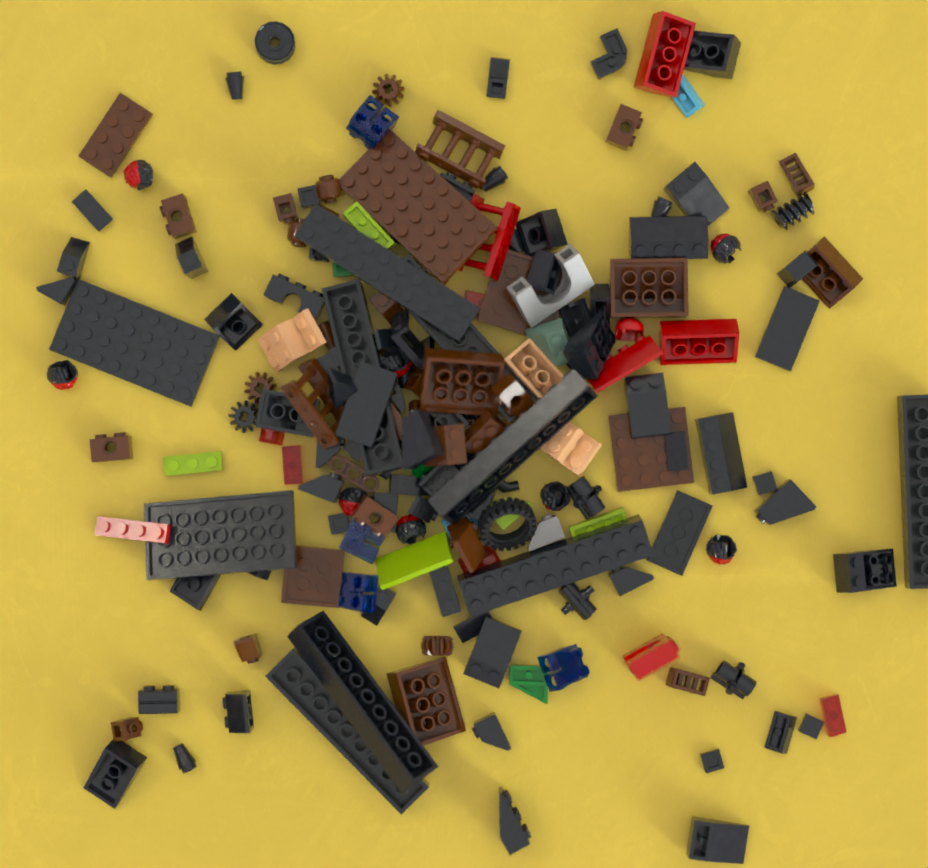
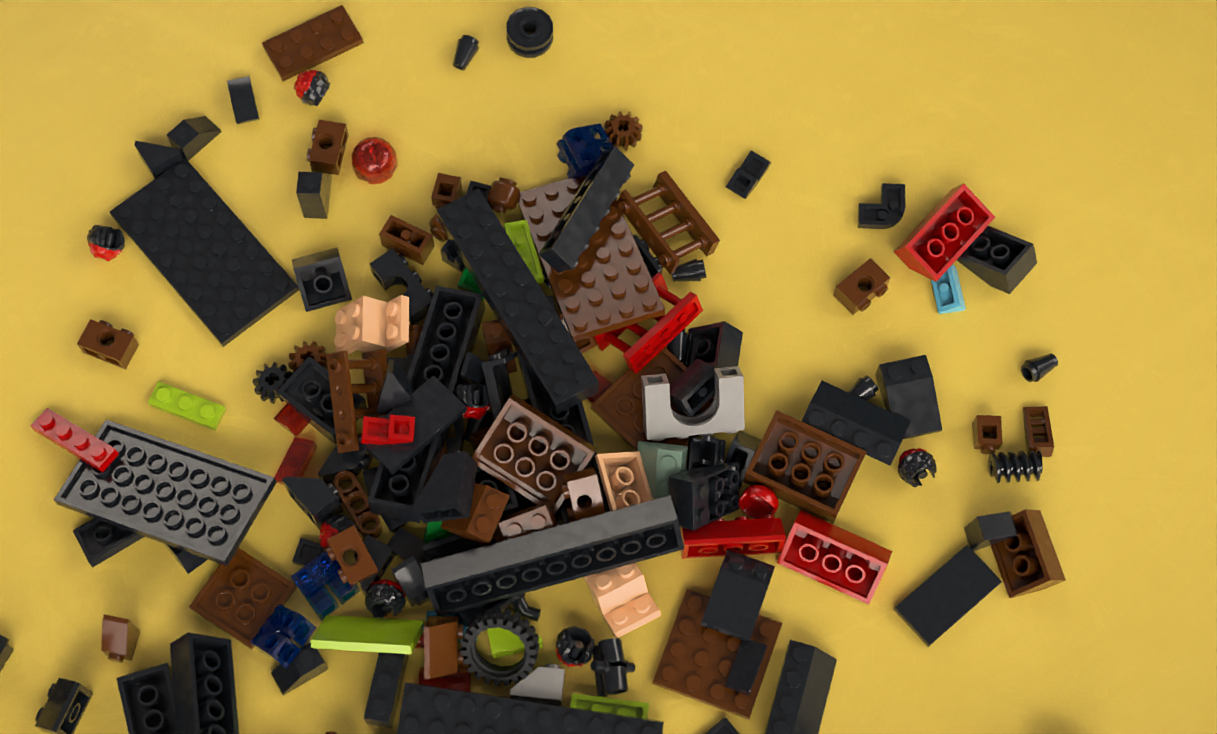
camera: 25 degrees right, 20 degrees down
(217, 208) = (374, 160): none -> clear red cylinder
(279, 261) = (406, 239): none -> reddish brown brick
(353, 419) = (388, 431): none -> red slope
(400, 176) = (586, 210): none -> black brick
(777, 125) = (1038, 367): none -> black cone

